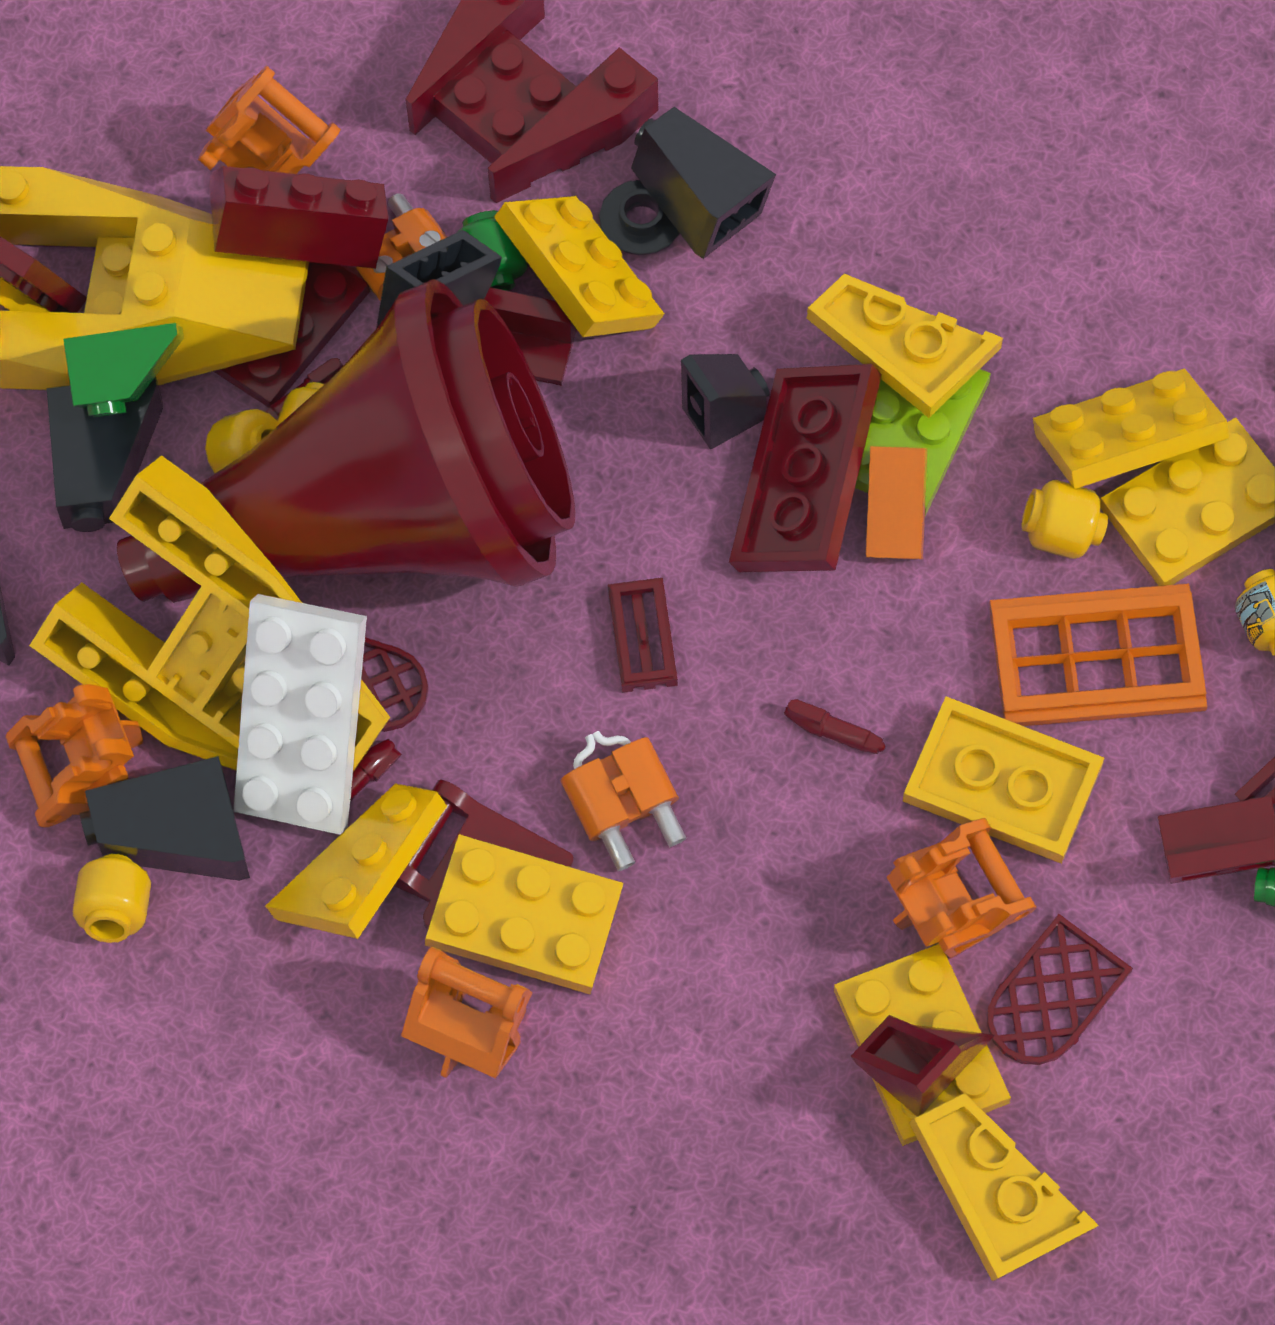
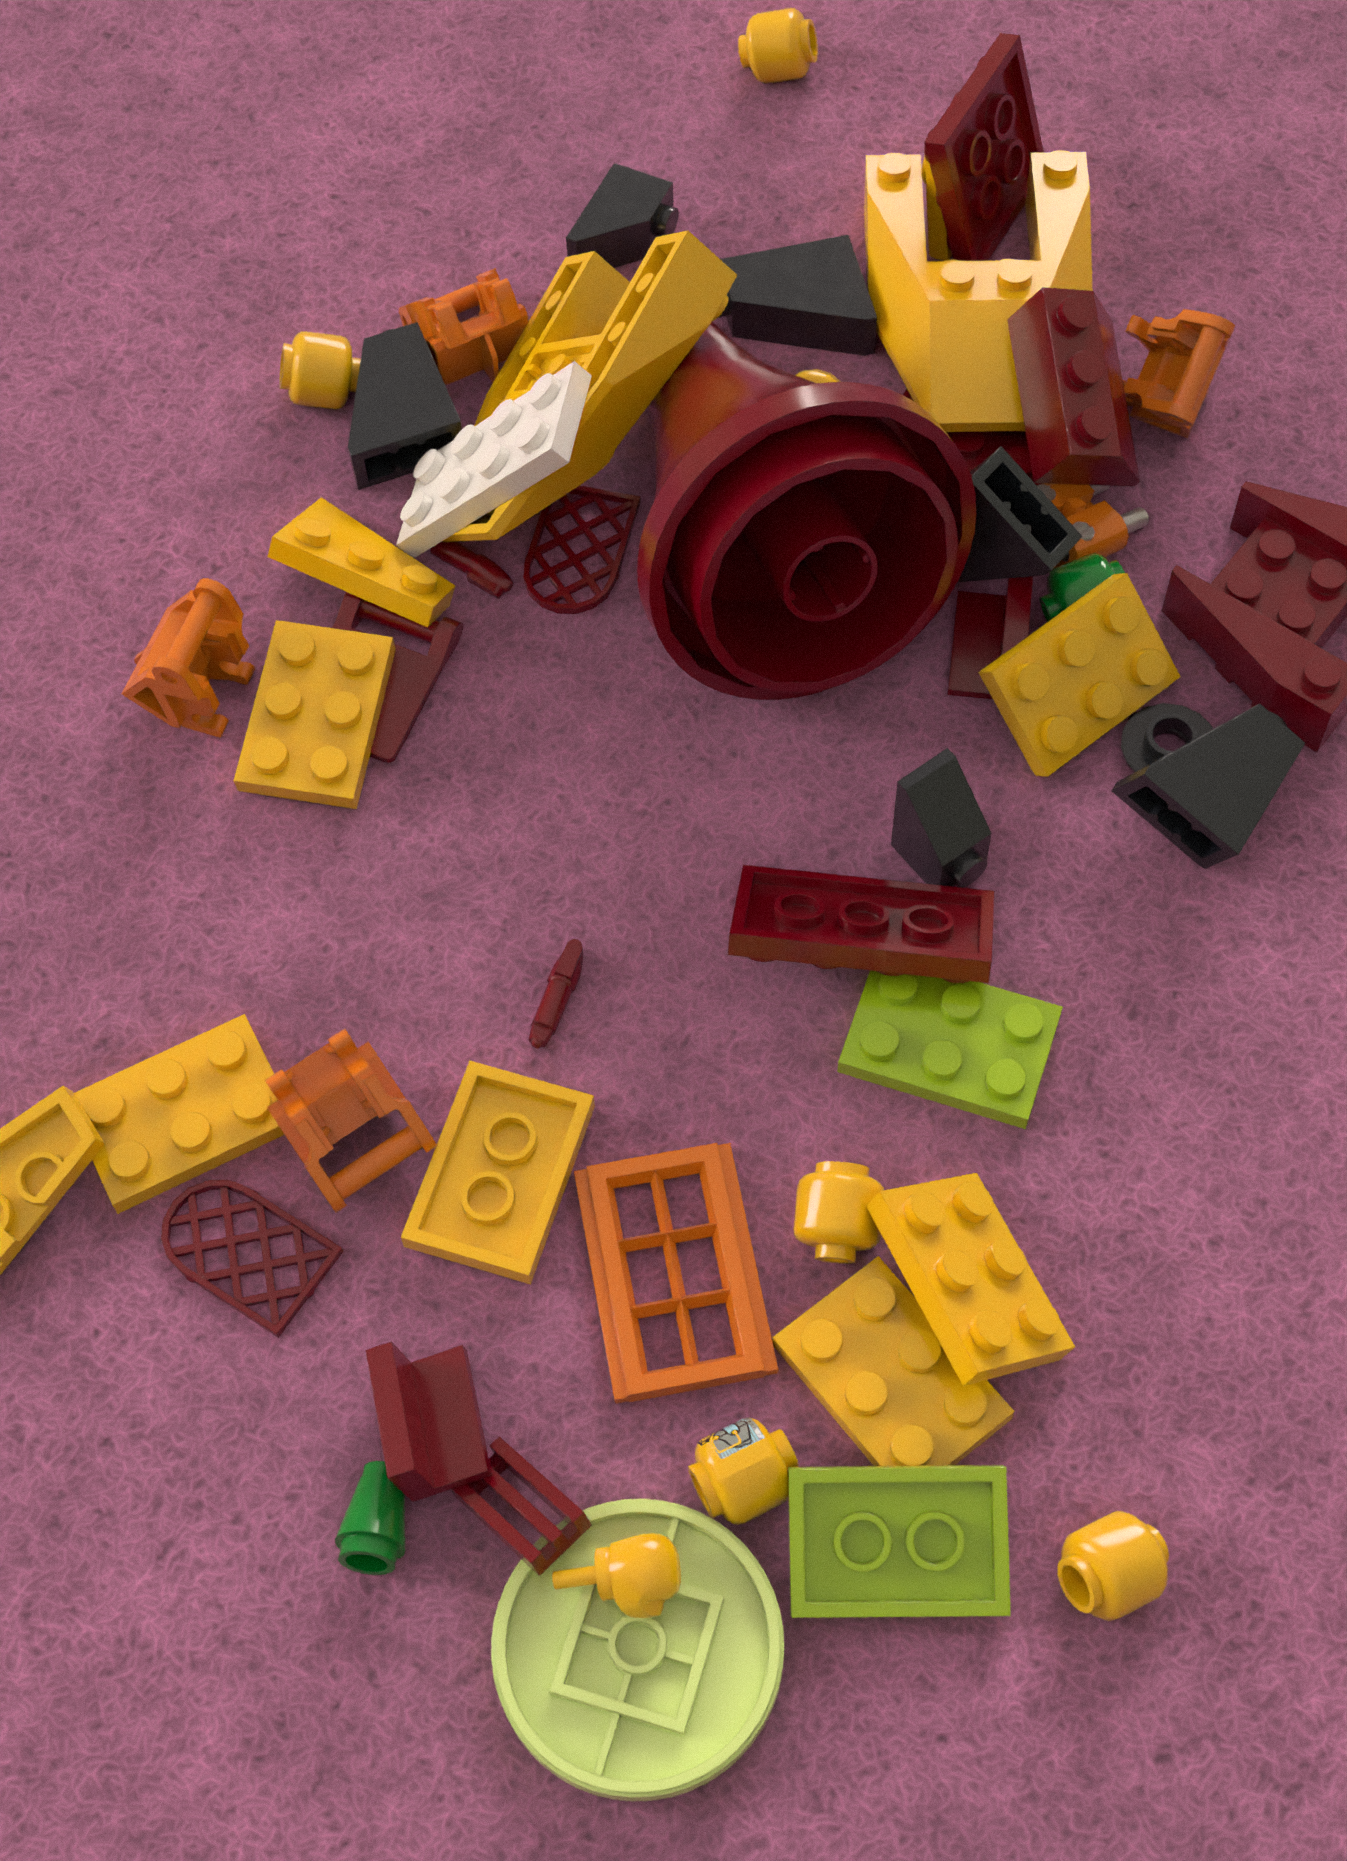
camera: 85 degrees right, 5 degrees down
(117, 365) = (851, 248): green slope -> none
(619, 791) = (459, 787): orange piece -> none
(648, 677) = (654, 805): dark red tile -> none
(896, 502) = (834, 1023): orange tile -> none
(914, 351) = (1035, 1005): yellow wing -> none
(917, 1060) = (139, 1089): dark red slope -> none

